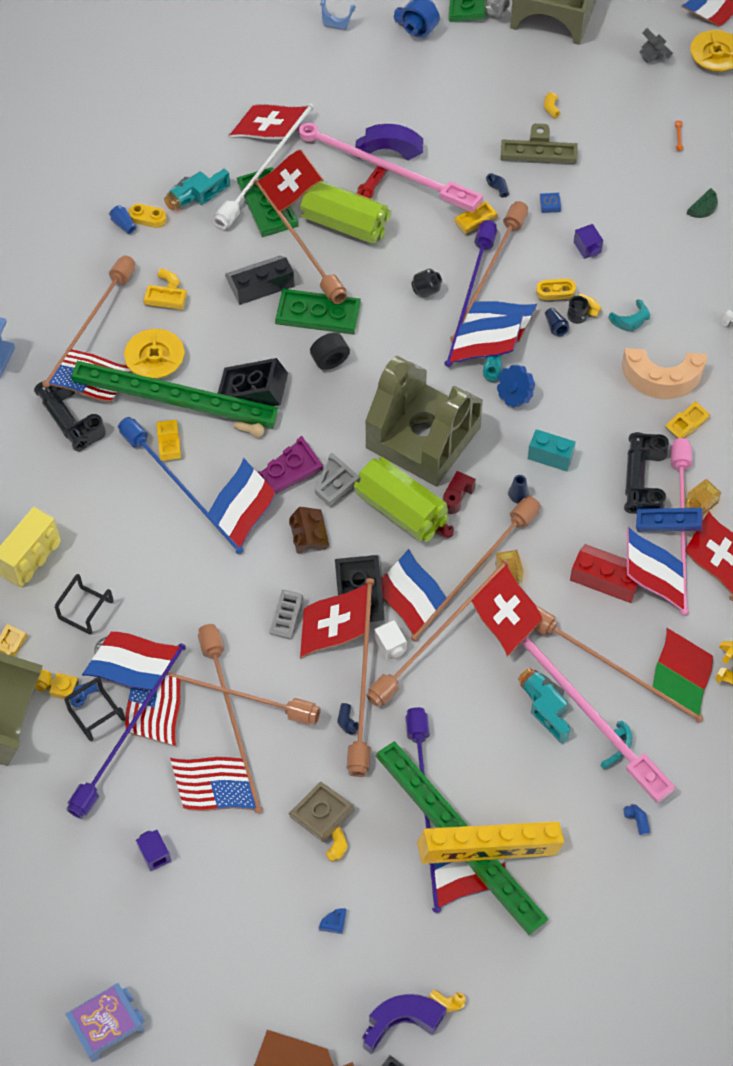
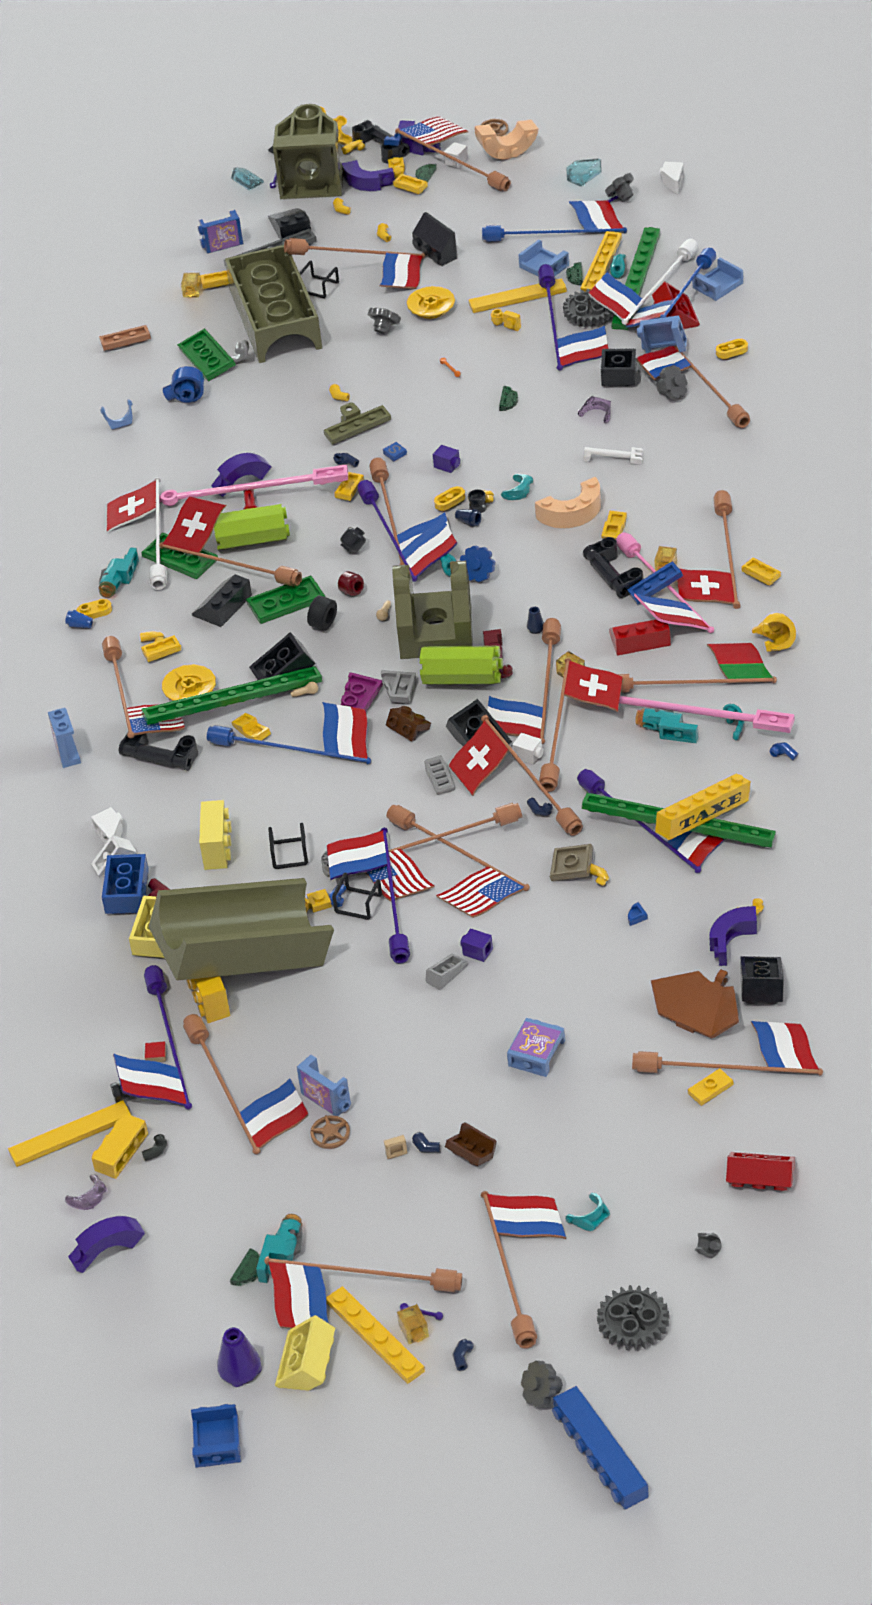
camera: 30 degrees left, 15 degrees down
(98, 867) = (443, 971): none -> light grey slope
(386, 332) = (350, 583): none -> dark red head
(551, 450) = (536, 588): teal brick -> none

